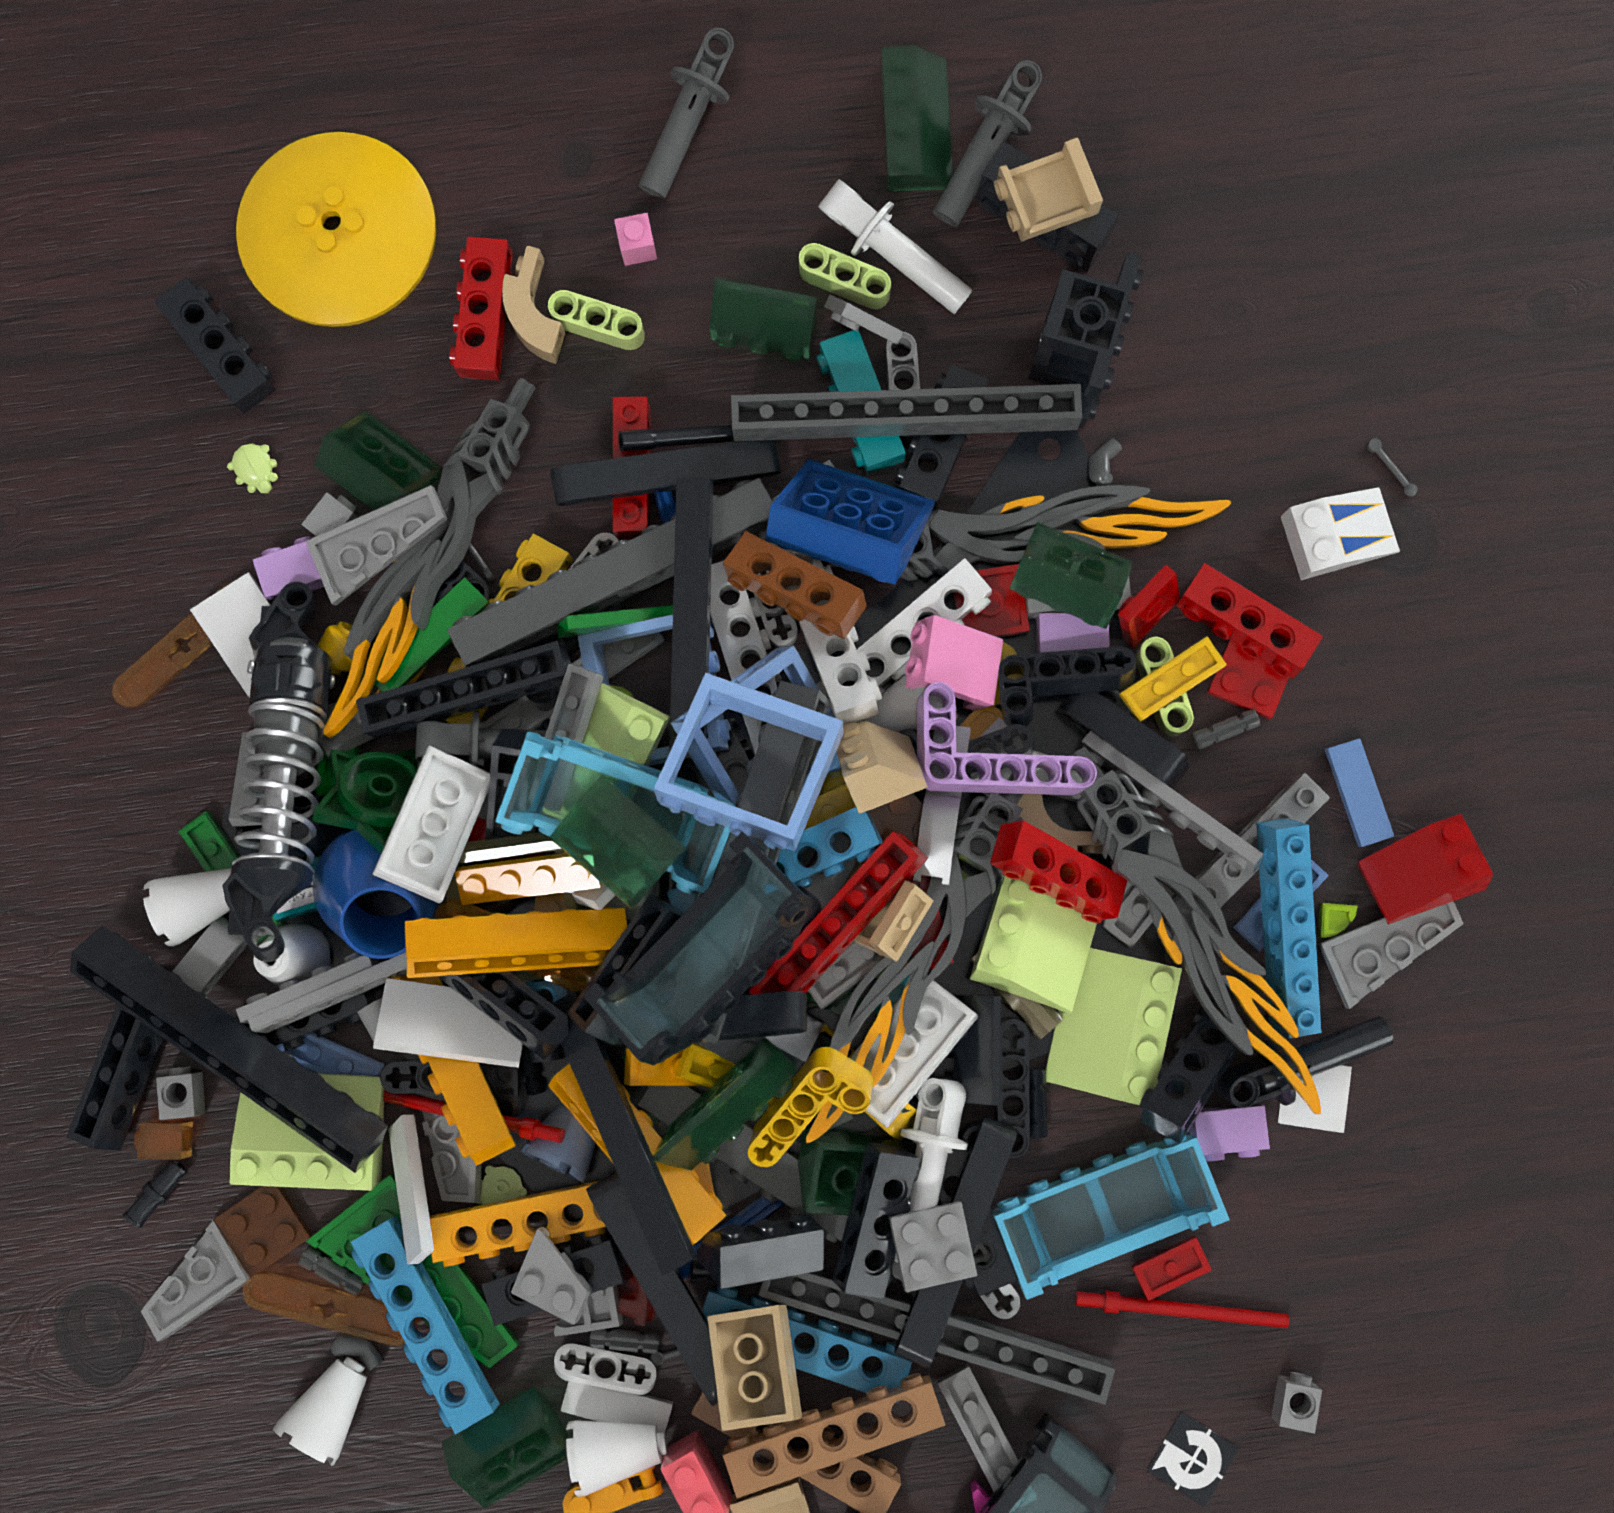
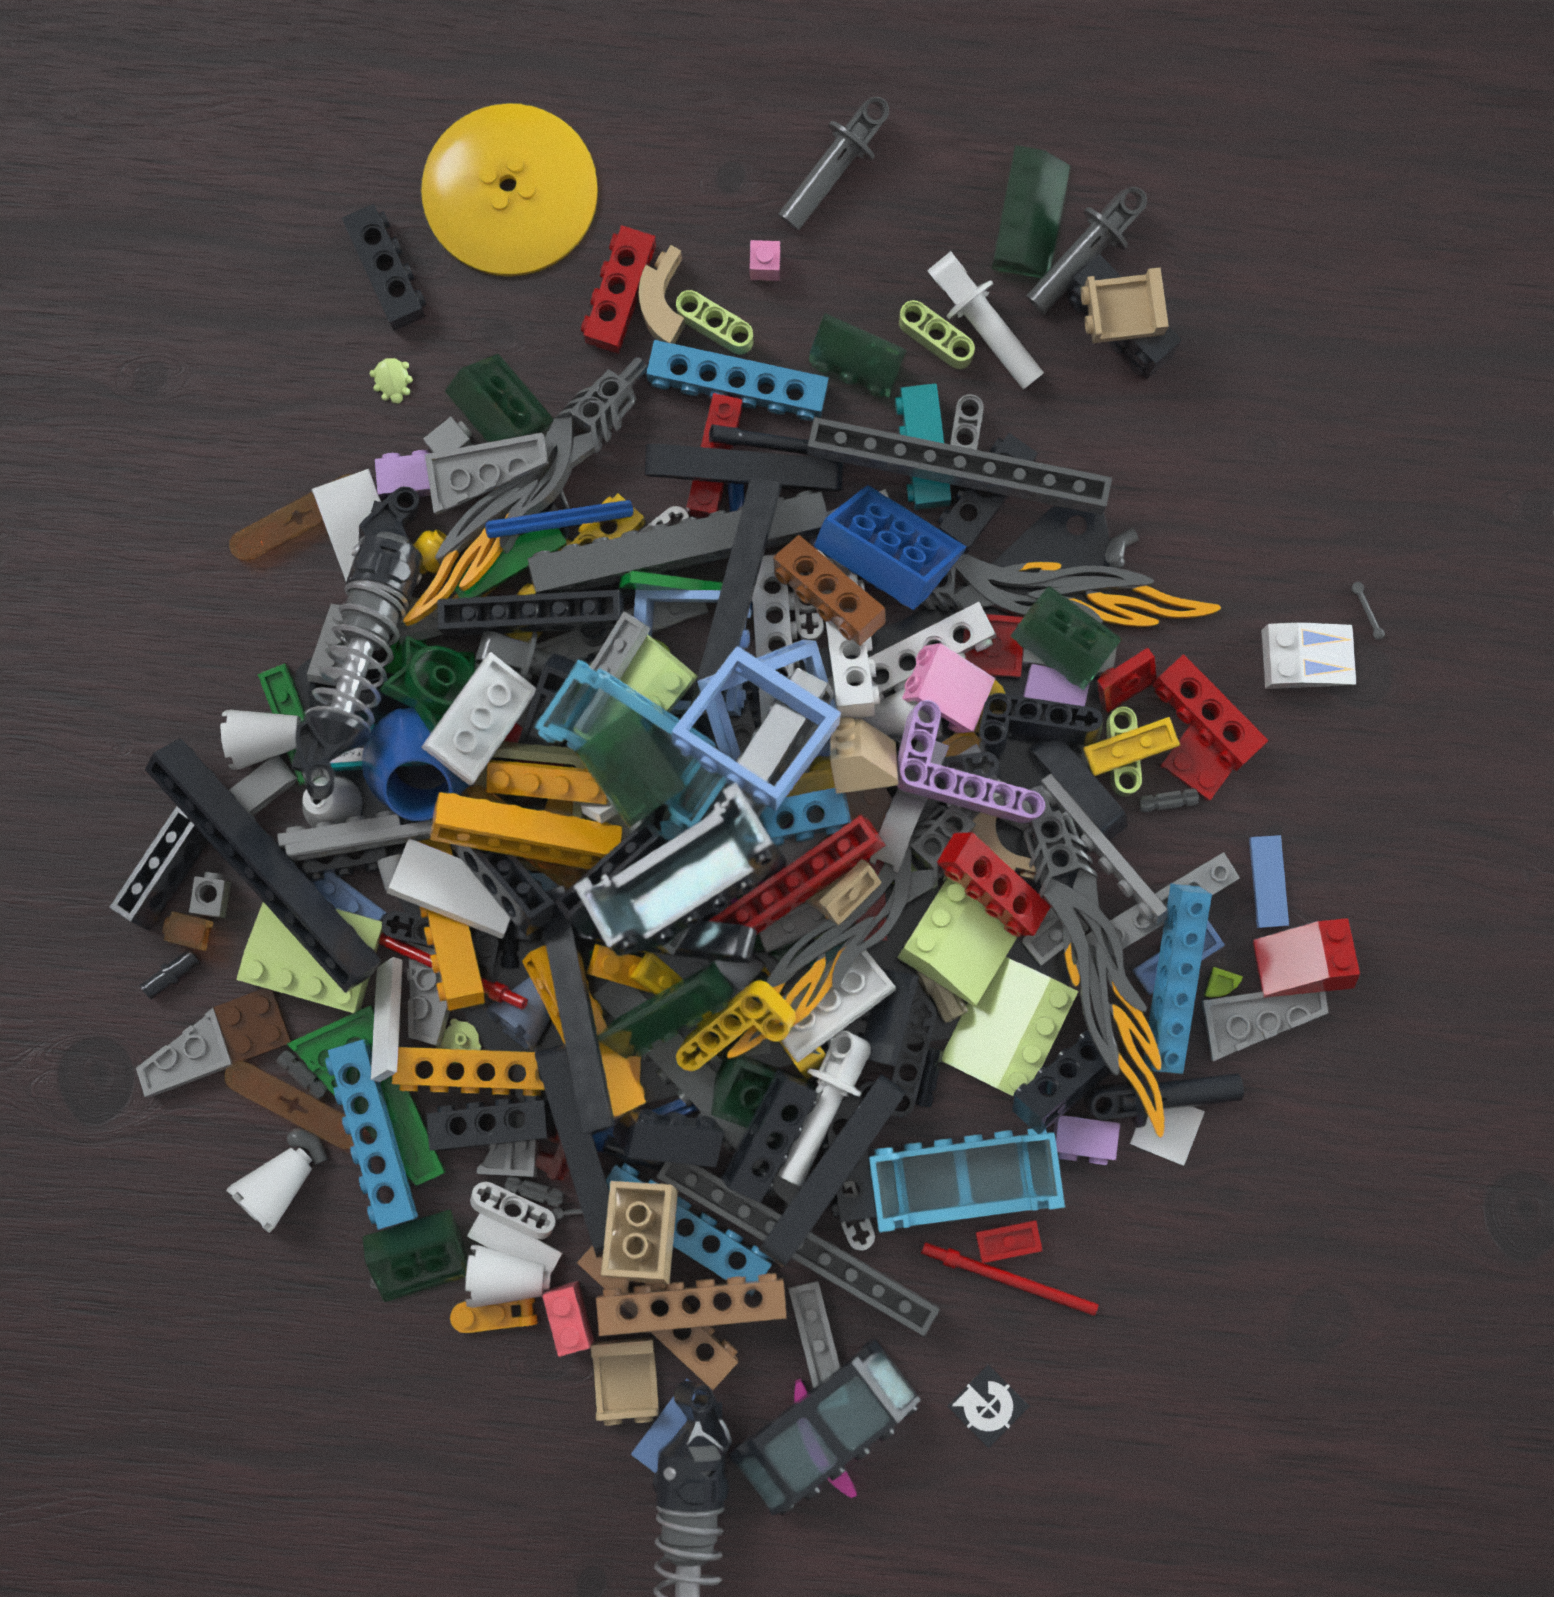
camera: 10 degrees right, 0 degrees up
(472, 577) = (559, 519): none -> blue axle
(550, 1280) = (487, 1122): light grey wing -> none
(621, 366) = (667, 355): none -> dark azure brick
(854, 318) = (936, 373): light grey wing -> none
(933, 1246) = (811, 1167): light grey plate -> none
(1079, 345) = (1125, 435): black piece -> none
(1303, 1417) = (1090, 1391): light grey brick -> none

